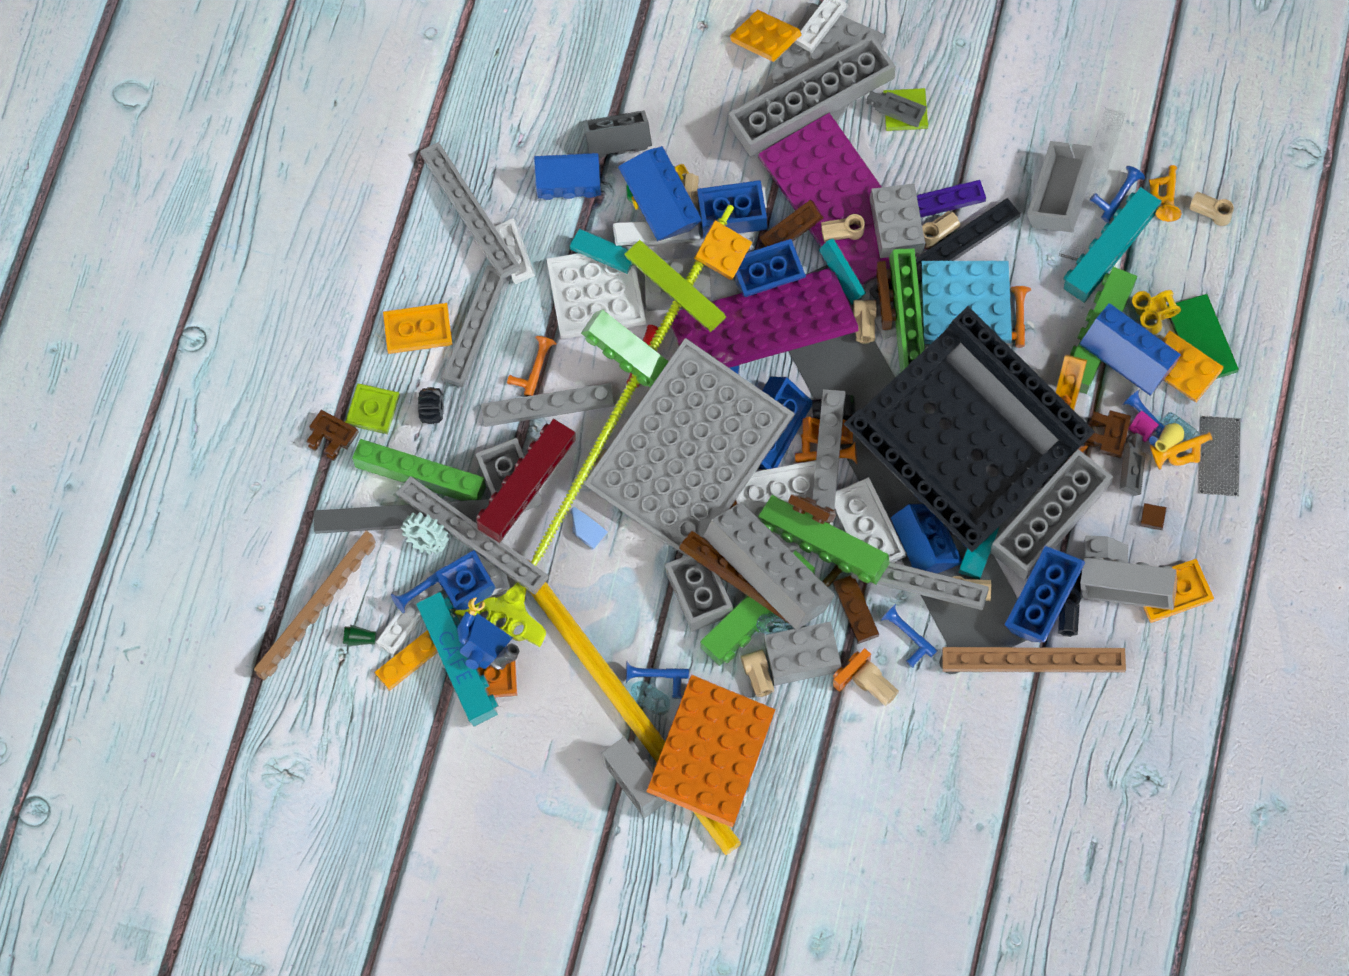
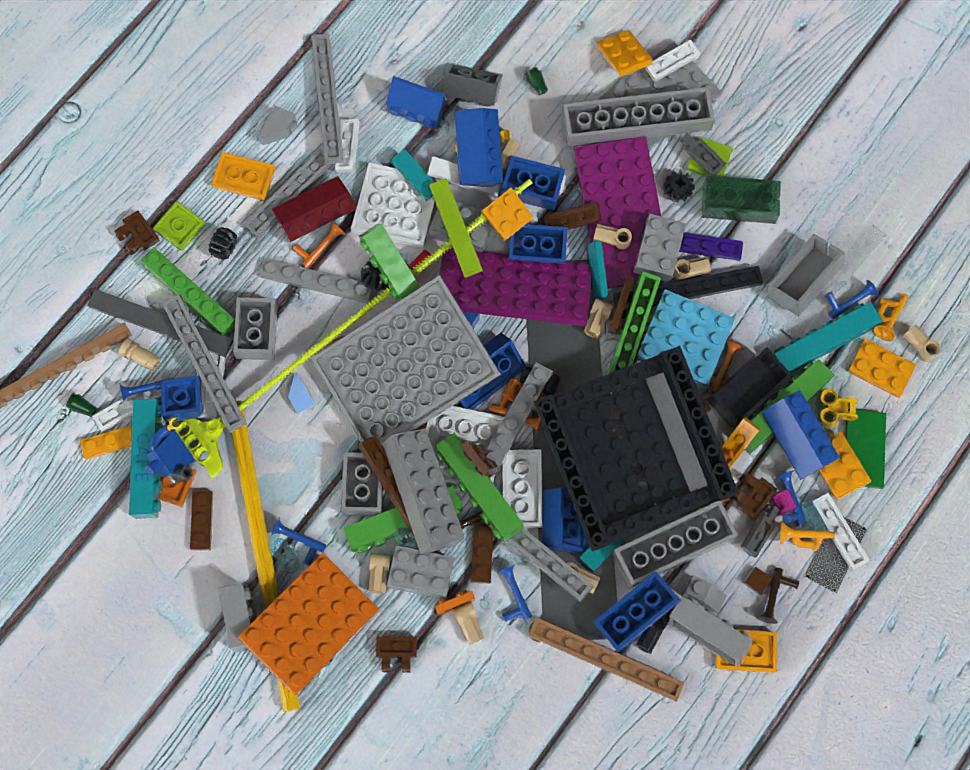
camera: 15 degrees right, 5 degrees up
(395, 558) = (139, 355): none -> tan axle
(425, 533) = (168, 345): light aqua gear -> none
(430, 260) = (278, 126): none -> light grey slope
(511, 330) = (314, 208): none -> dark red slope
(526, 480) = (263, 337): dark red brick -> none
(544, 700) = (201, 520): none -> reddish brown plate
(608, 373) = (371, 277): none -> black gear
(683, 100) = (536, 80): none -> dark green cone
(812, 740) = (396, 647): none -> reddish brown plate
(886, 150) = (686, 186): none -> black gear
(958, 137) = (741, 199): none -> clear green piece
(1055, 325) = (749, 387): none -> black piece
(1170, 436) = (800, 521): light yellow cone -> none
(1180, 547) = (768, 615): none -> dark brown piece
(1182, 250) = (881, 368): none -> light orange plate
(1223, 437) = (844, 537): none -> white plate

